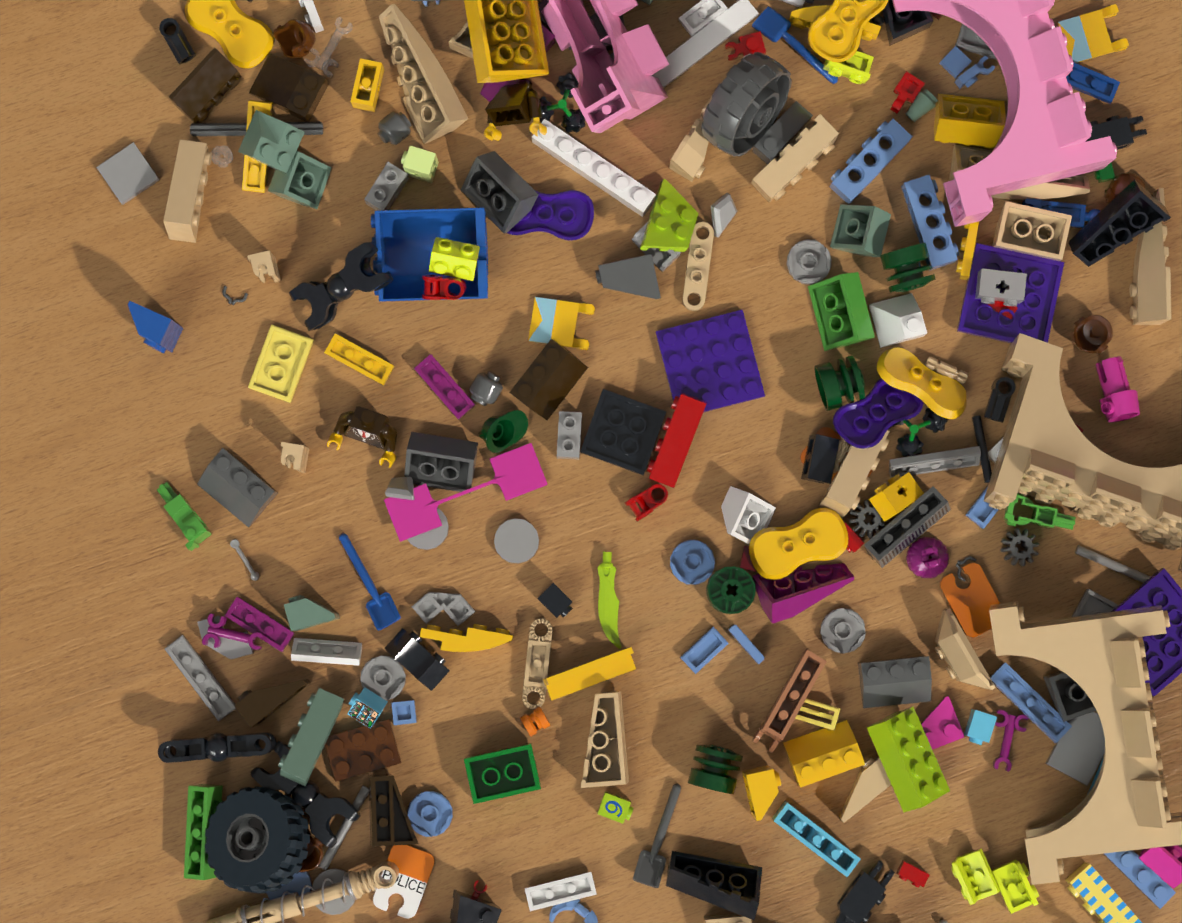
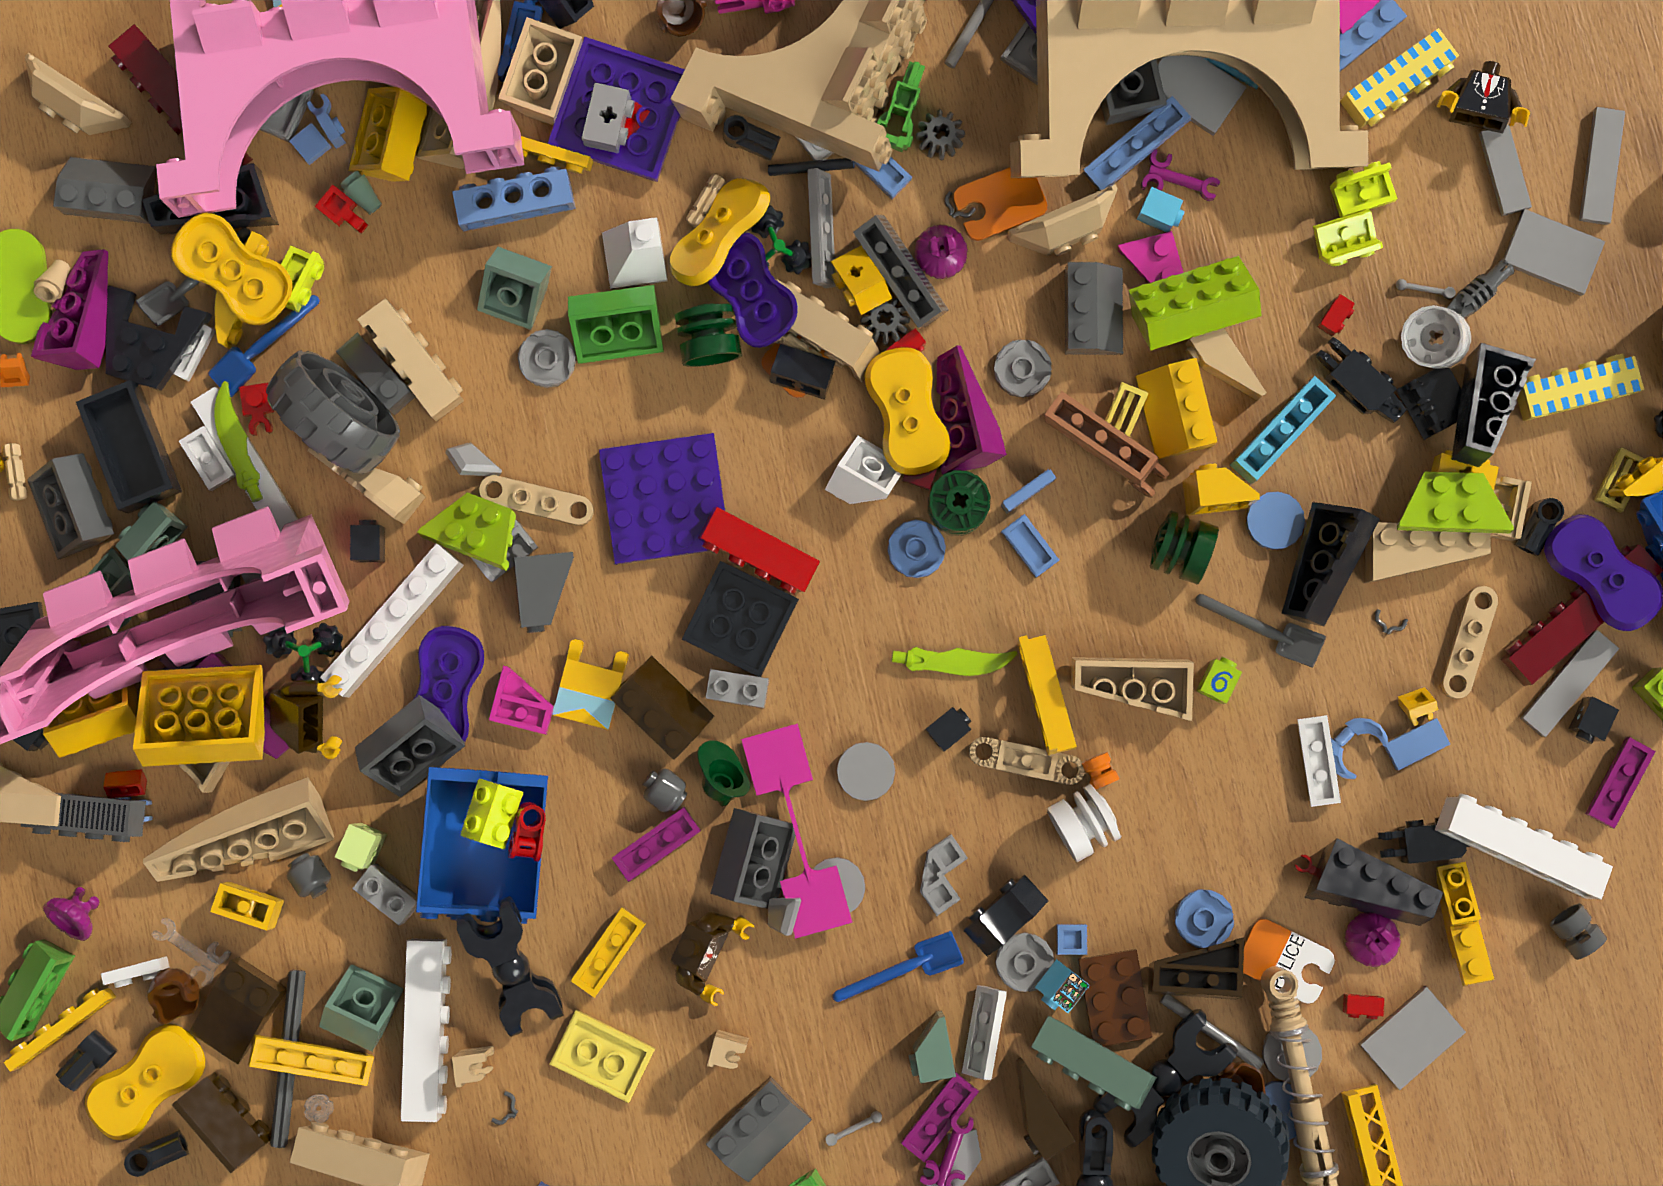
camera: 85 degrees left, 0 degrees up
(271, 141) = (307, 1040): sand green slope -> none
(288, 228) = (424, 1030): none -> white brick
(475, 639) = (989, 836): yellow slope -> none
(493, 712) = (1084, 822): none -> white wheel
(502, 773) = (1163, 819): green brick -> none
(540, 271) = (520, 704): none -> dark pink wing
(646, 502) = (834, 599): red piece -> none
(651, 142) = (367, 542): none -> black brick
(716, 33) = (235, 443): none -> lime sword
(745, 840) = (1275, 520): none -> medium blue tile
(849, 189) = (399, 228): medium blue brick -> none
(907, 267) = (570, 232): dark green wheel -> none

